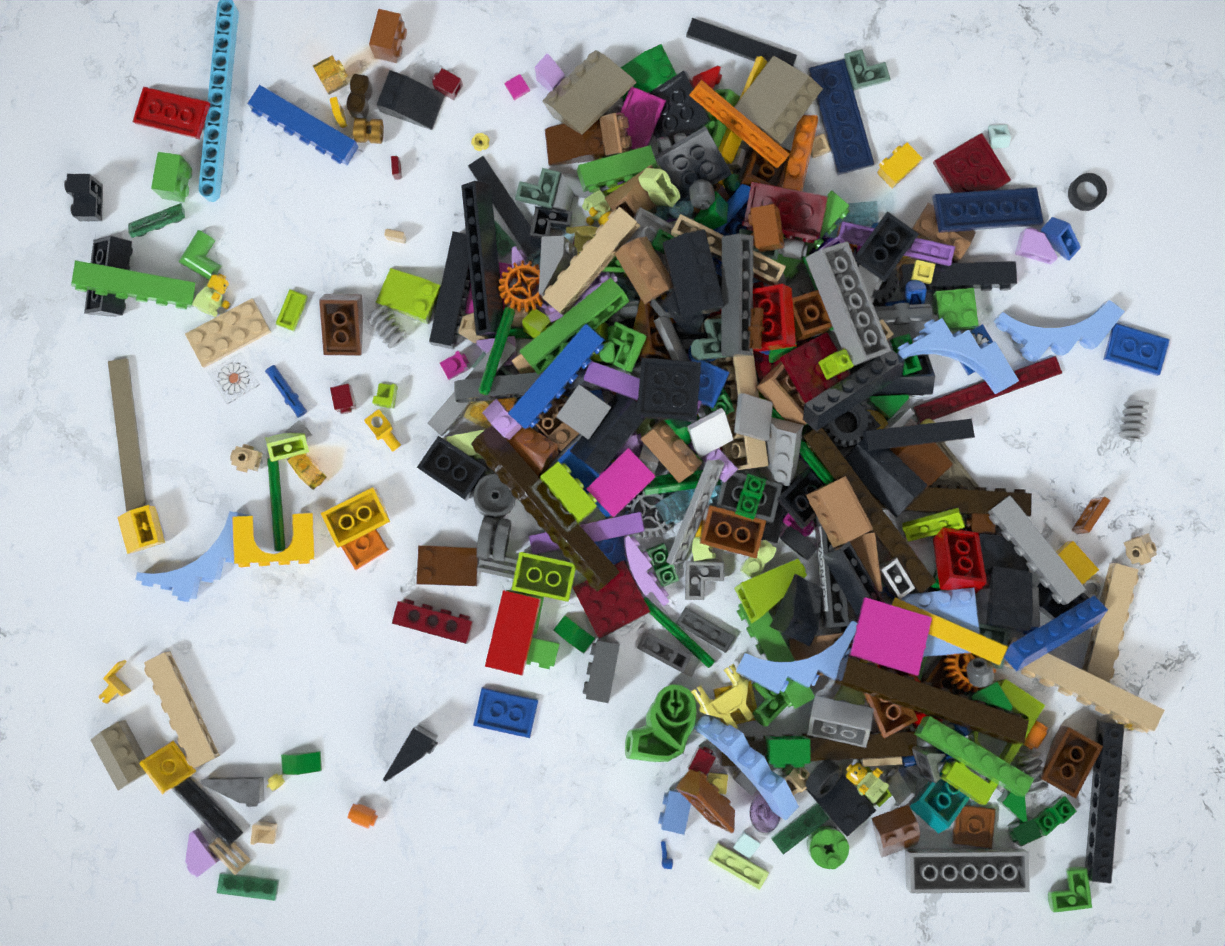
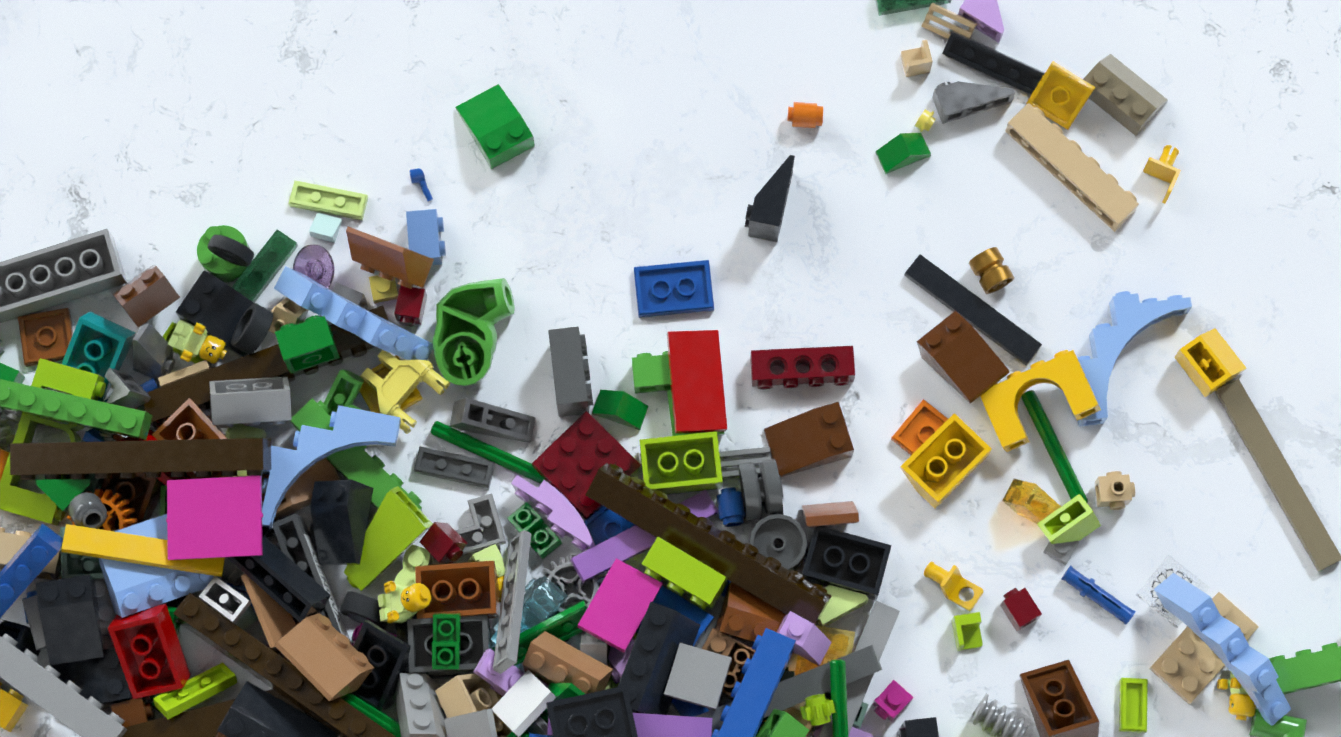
camera: 165 degrees right, 10 degrees down
(211, 324) = (1227, 641): none -> light blue arch
(270, 648) = (991, 270): none -> pearl gold wheel
(295, 625) = (973, 309): none -> black tile
(316, 588) = (961, 357): none -> reddish brown slope
(451, 505) = (830, 514): none -> tile
(508, 364) = (817, 709): none -> lime gear
(519, 535) = (731, 507): none -> blue brick
(596, 885) = (496, 126): none -> green slope
(730, 572) = (443, 543): none -> dark red brick
(774, 534) = (402, 602): none -> piece
(824, 841) = (231, 250): none -> black tyre

